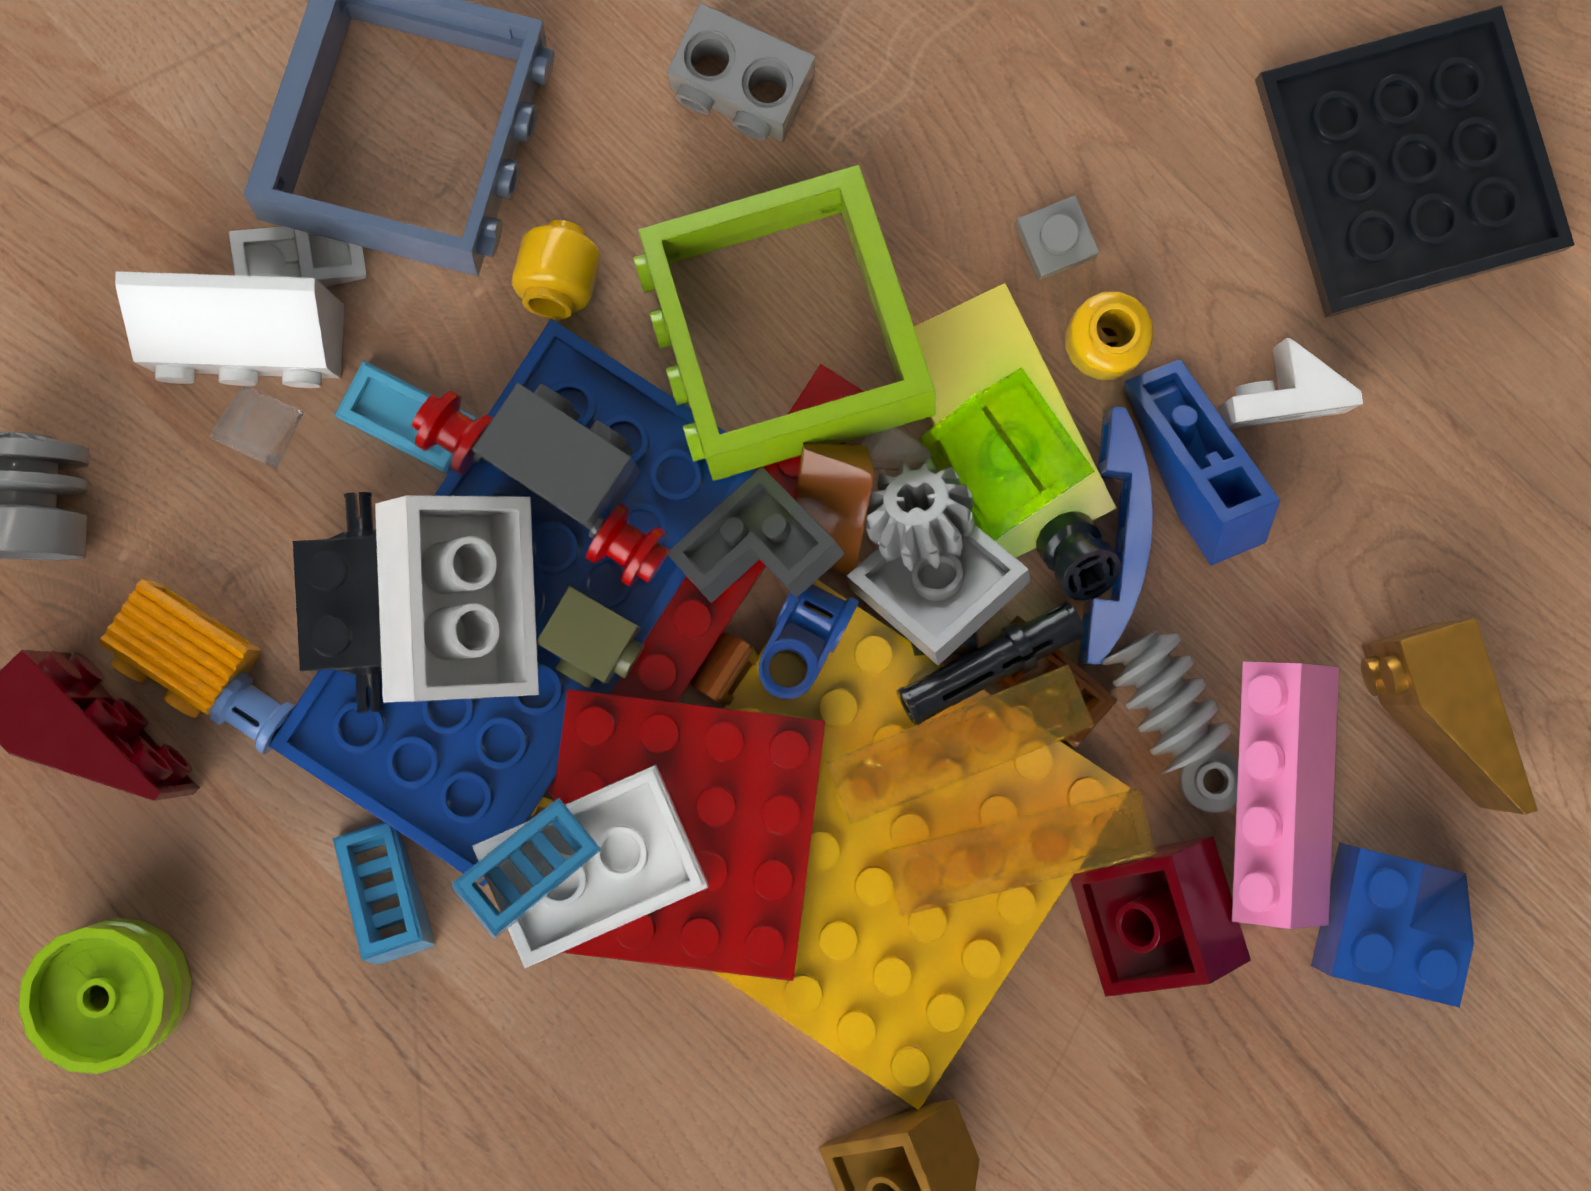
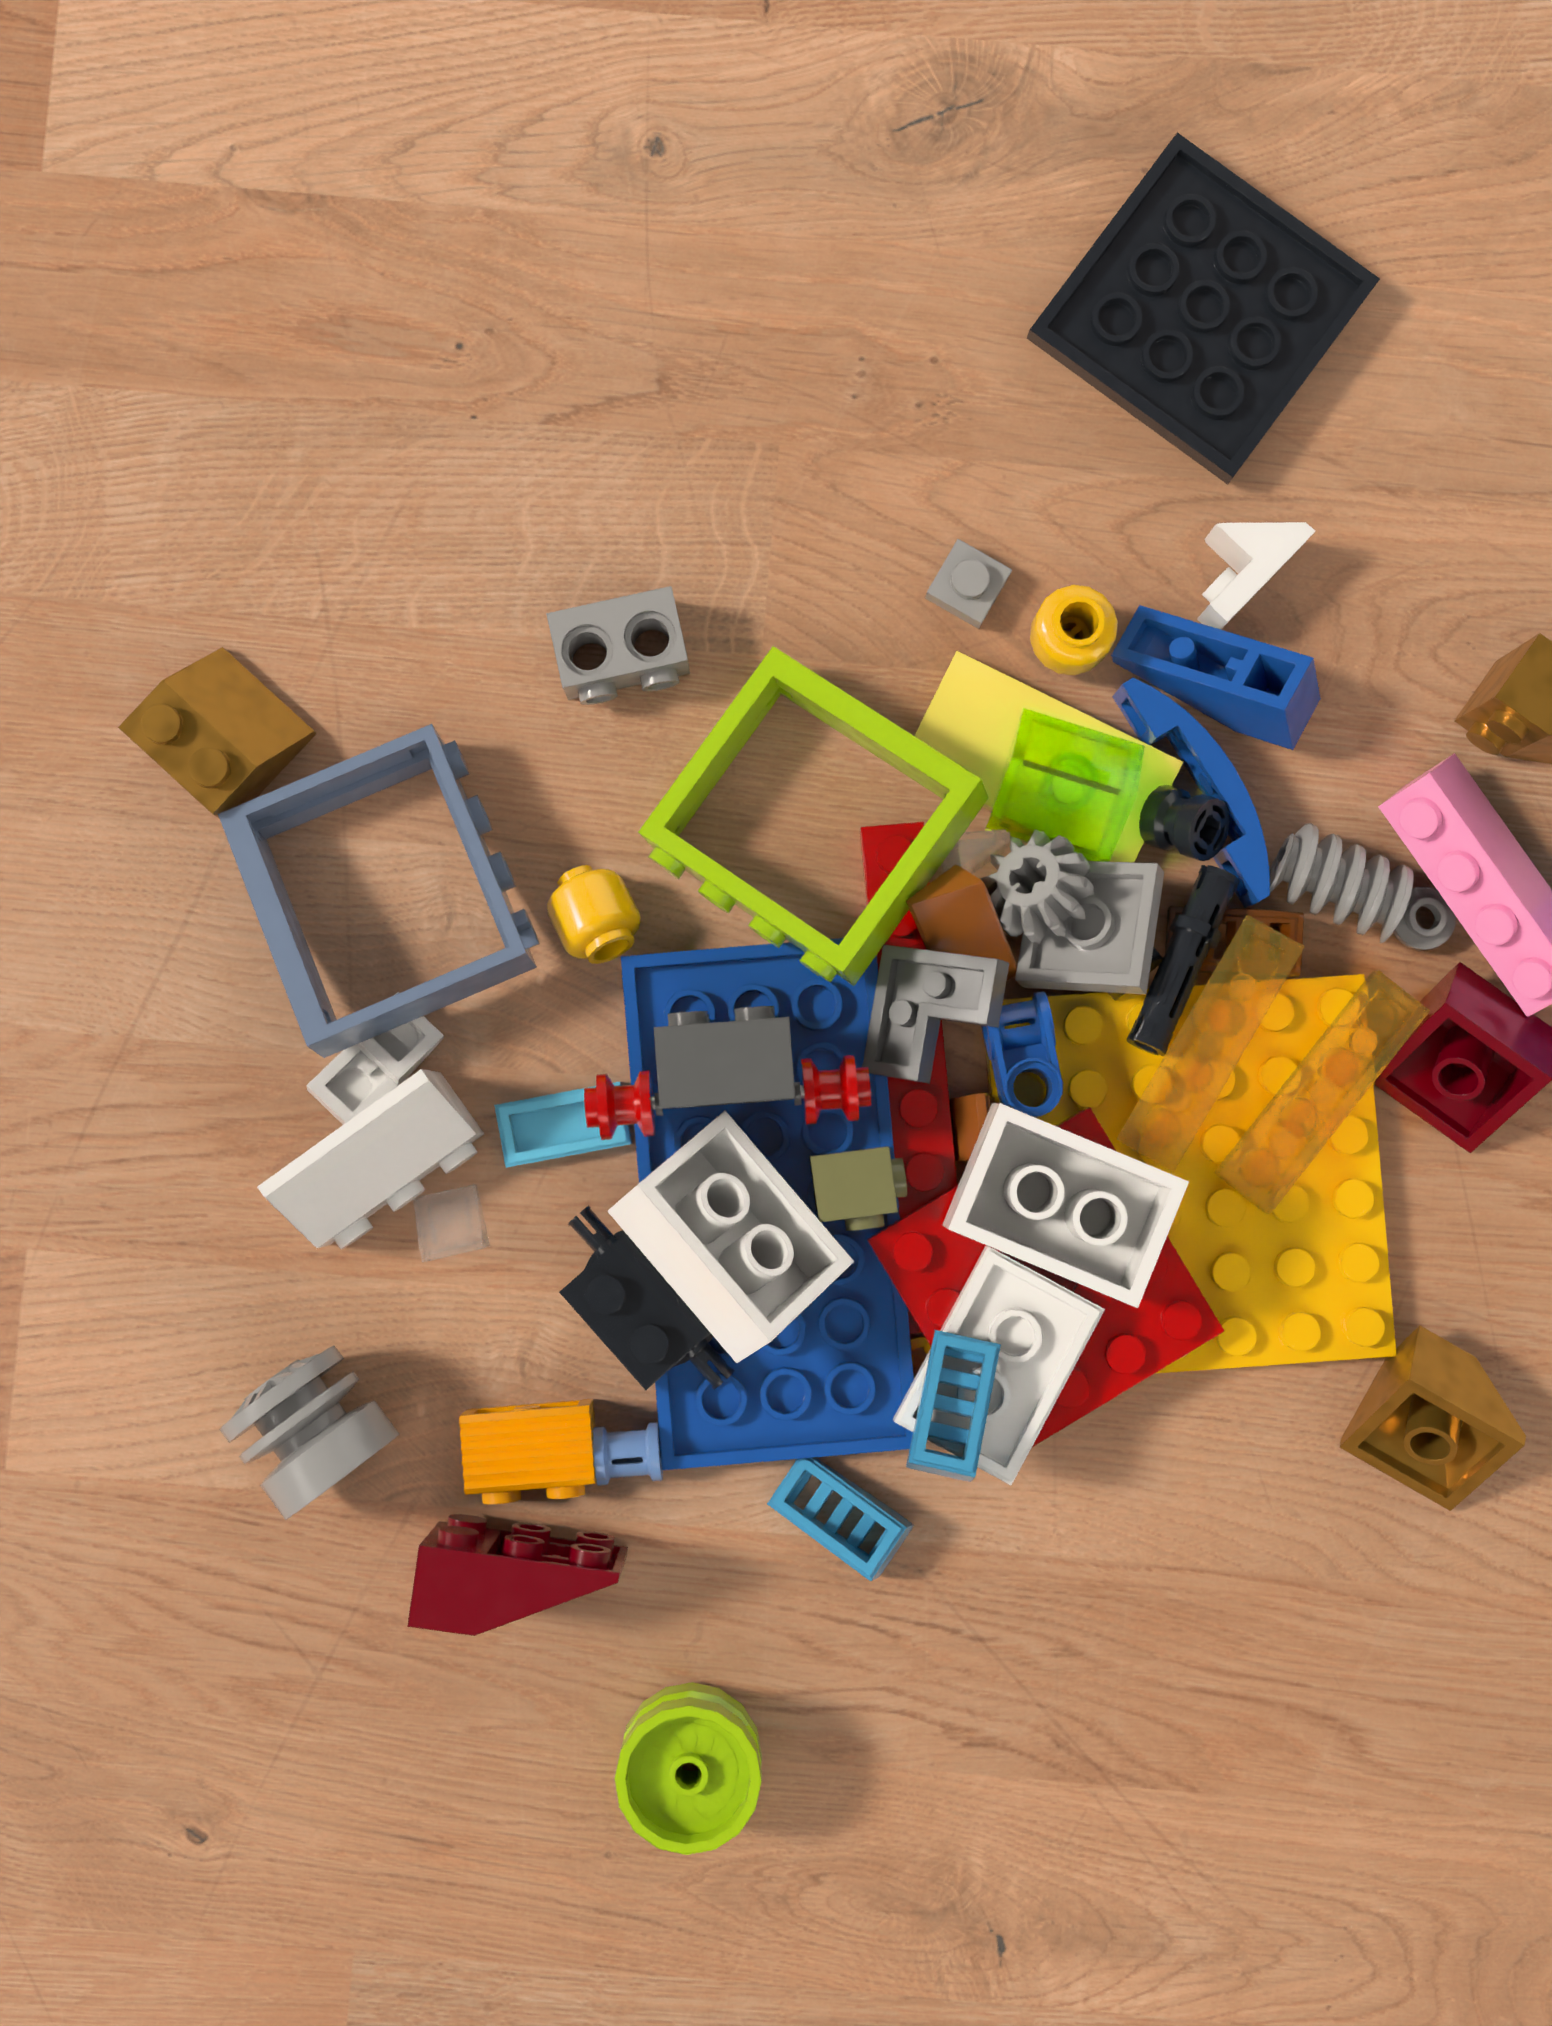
camera: 40 degrees left, 0 degrees up
(736, 777) = (1065, 1204): none -> white brick

